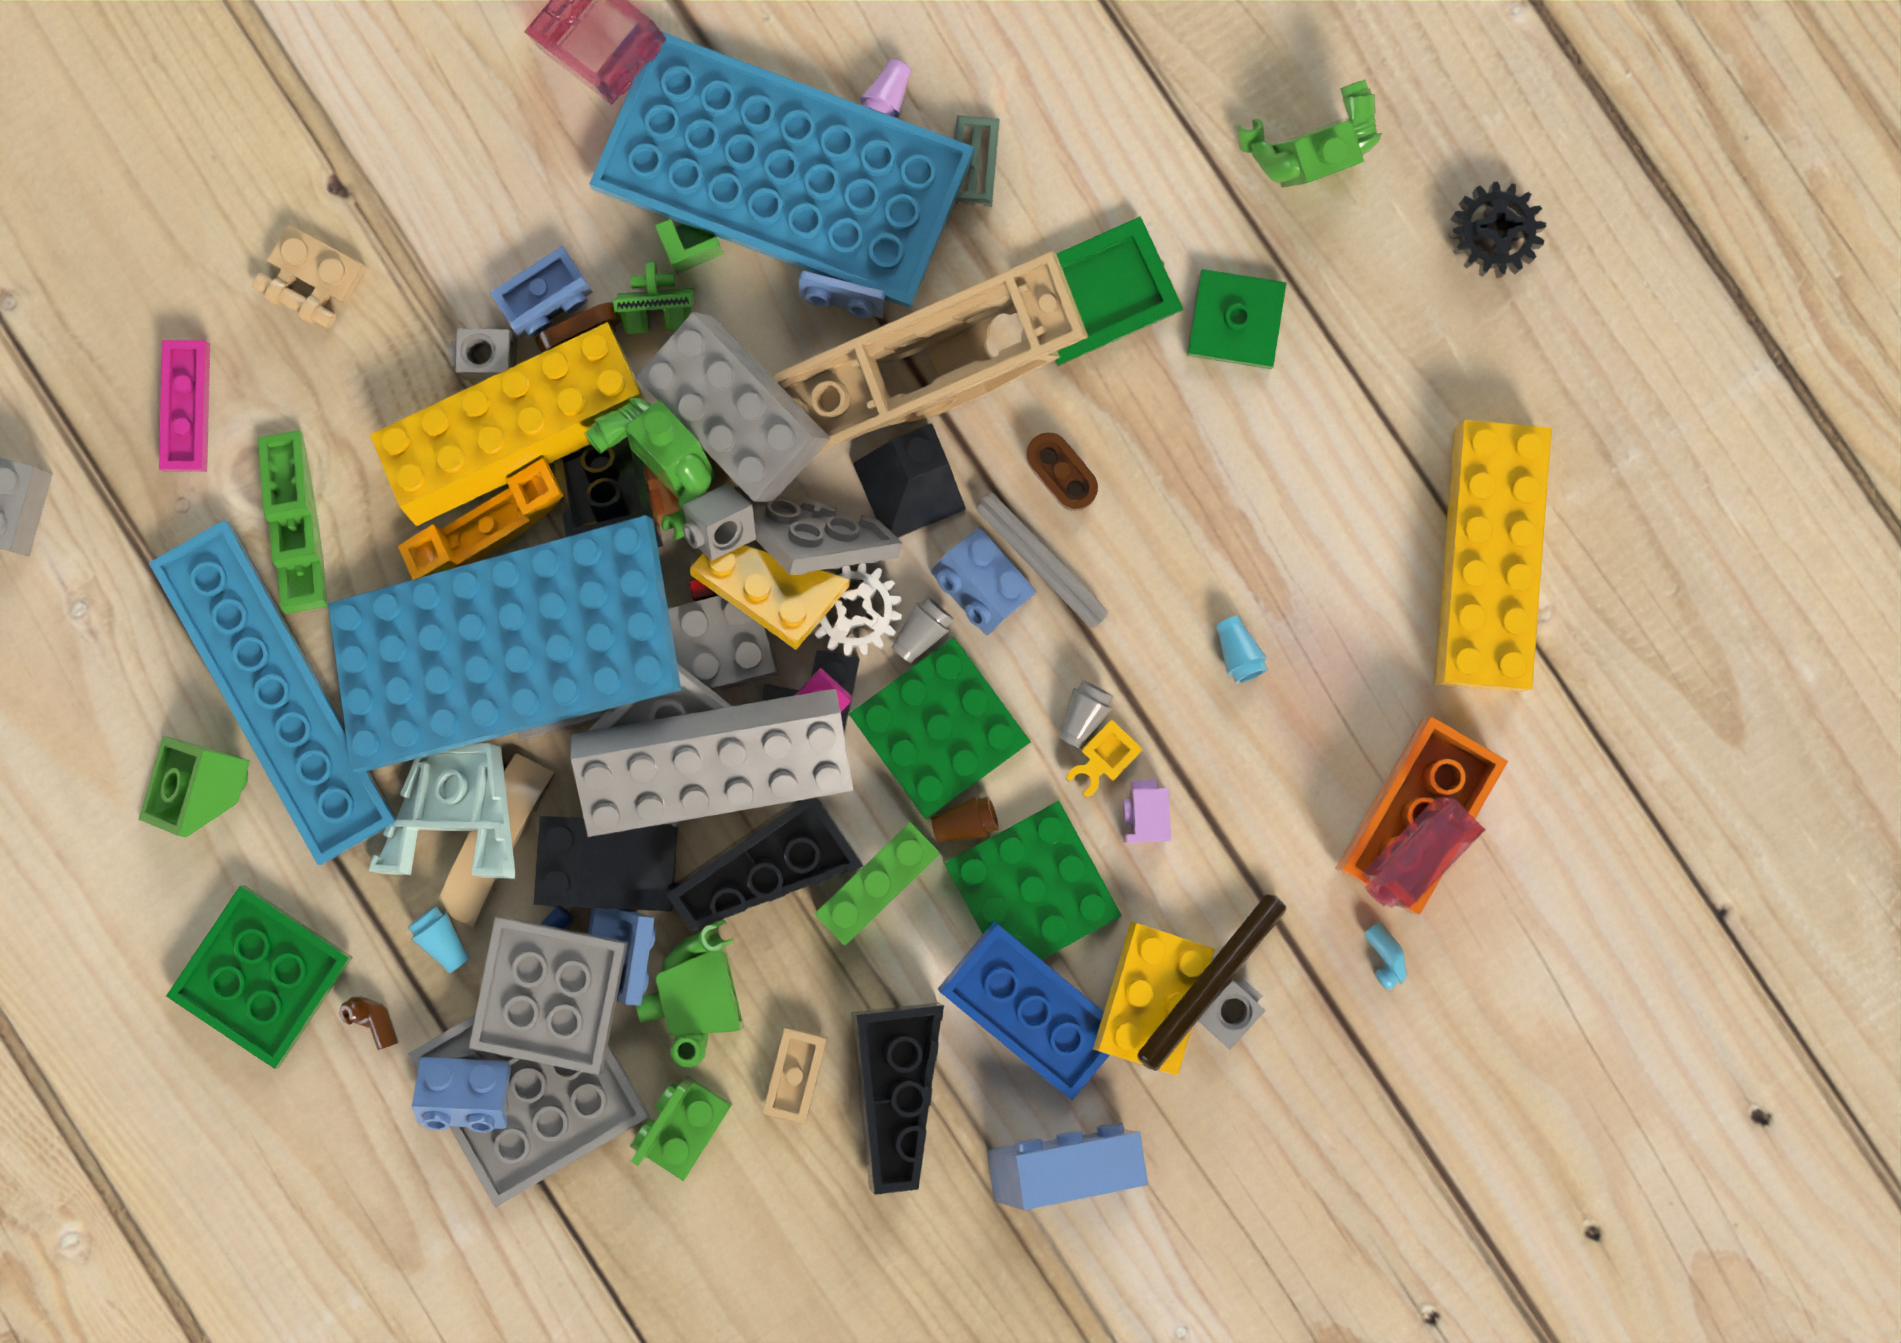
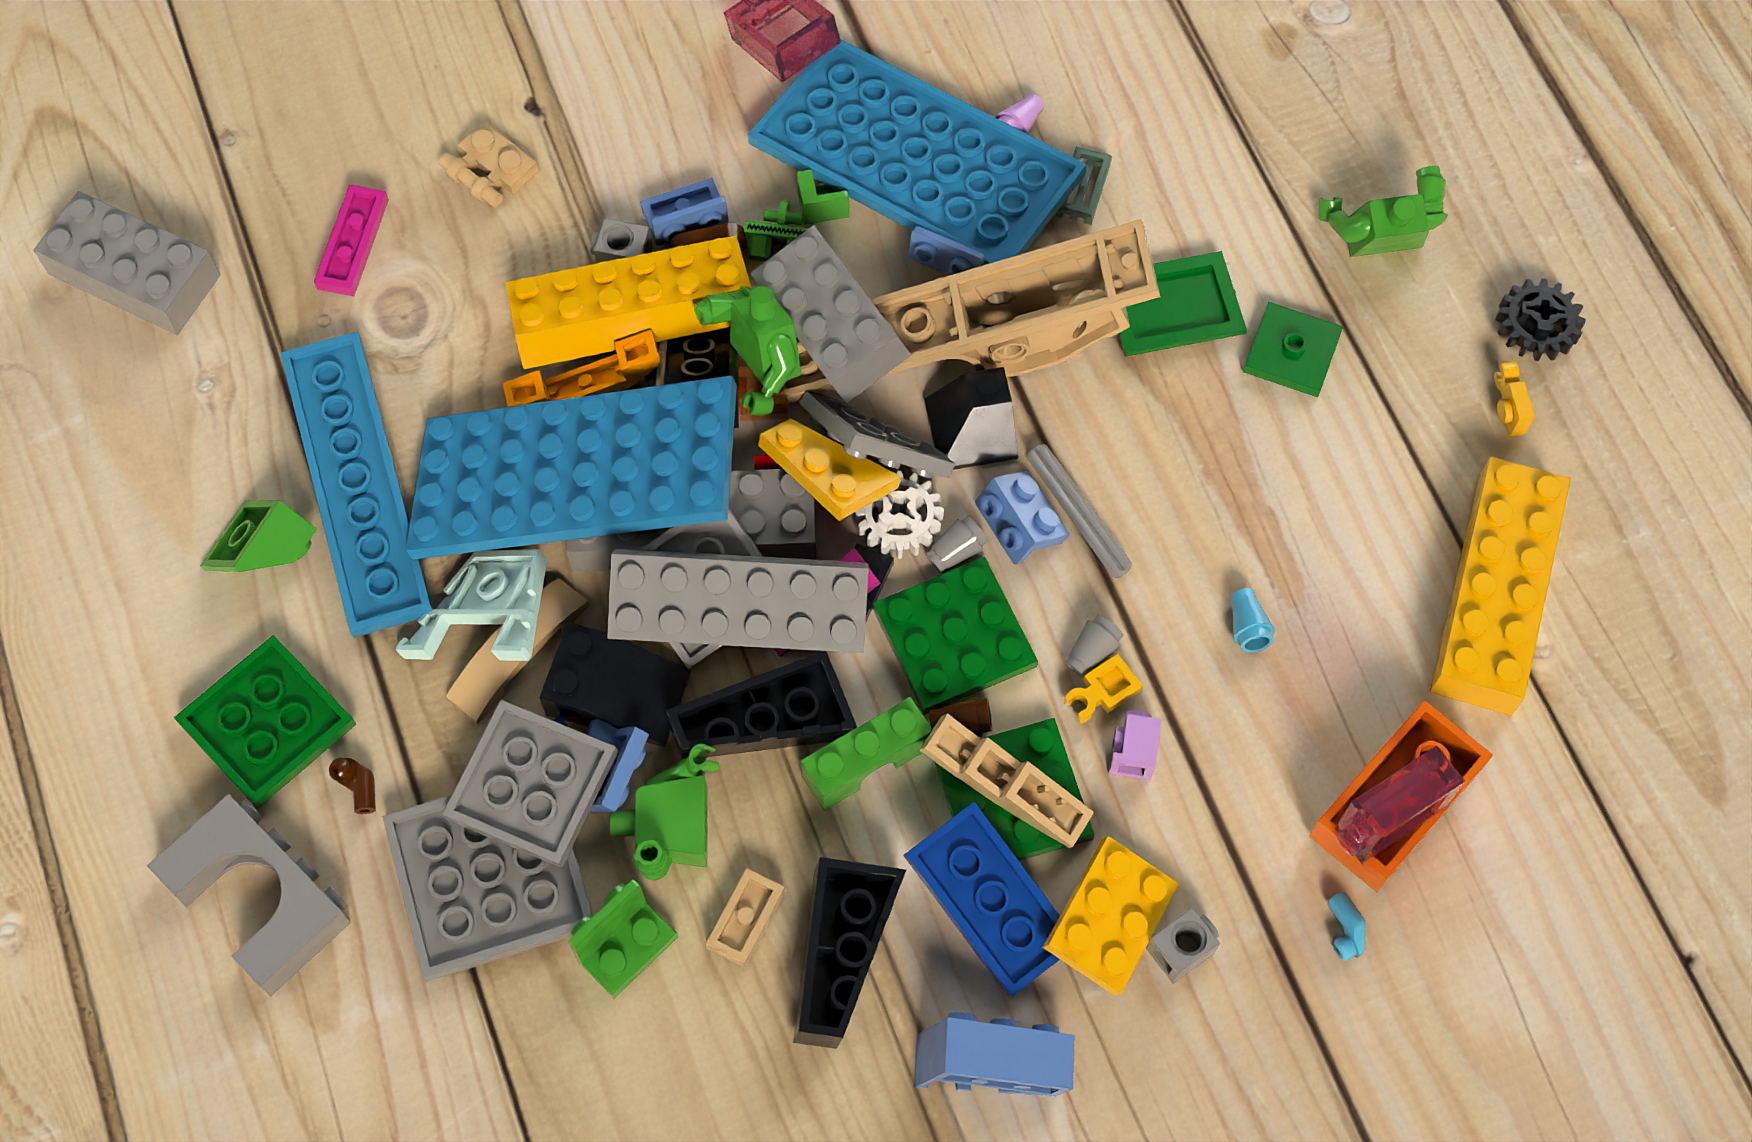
camera: 10 degrees right, 20 degrees down
(292, 521) = (415, 349): bright green slope -> none
(360, 1163) = (232, 838): none -> light grey arch
(439, 939) = (441, 720): medium azure cone -> none
(461, 1093) = (422, 859): medium blue bracket -> none
(719, 522) = (806, 410): light grey brick -> none
(1024, 888) = (1006, 781): none -> tan slope
(1062, 472) = (1114, 441): reddish brown plate -> none
(1211, 982) = (1170, 908): dark brown axle -> none
(1481, 342) = (1515, 405): none -> yellow plate

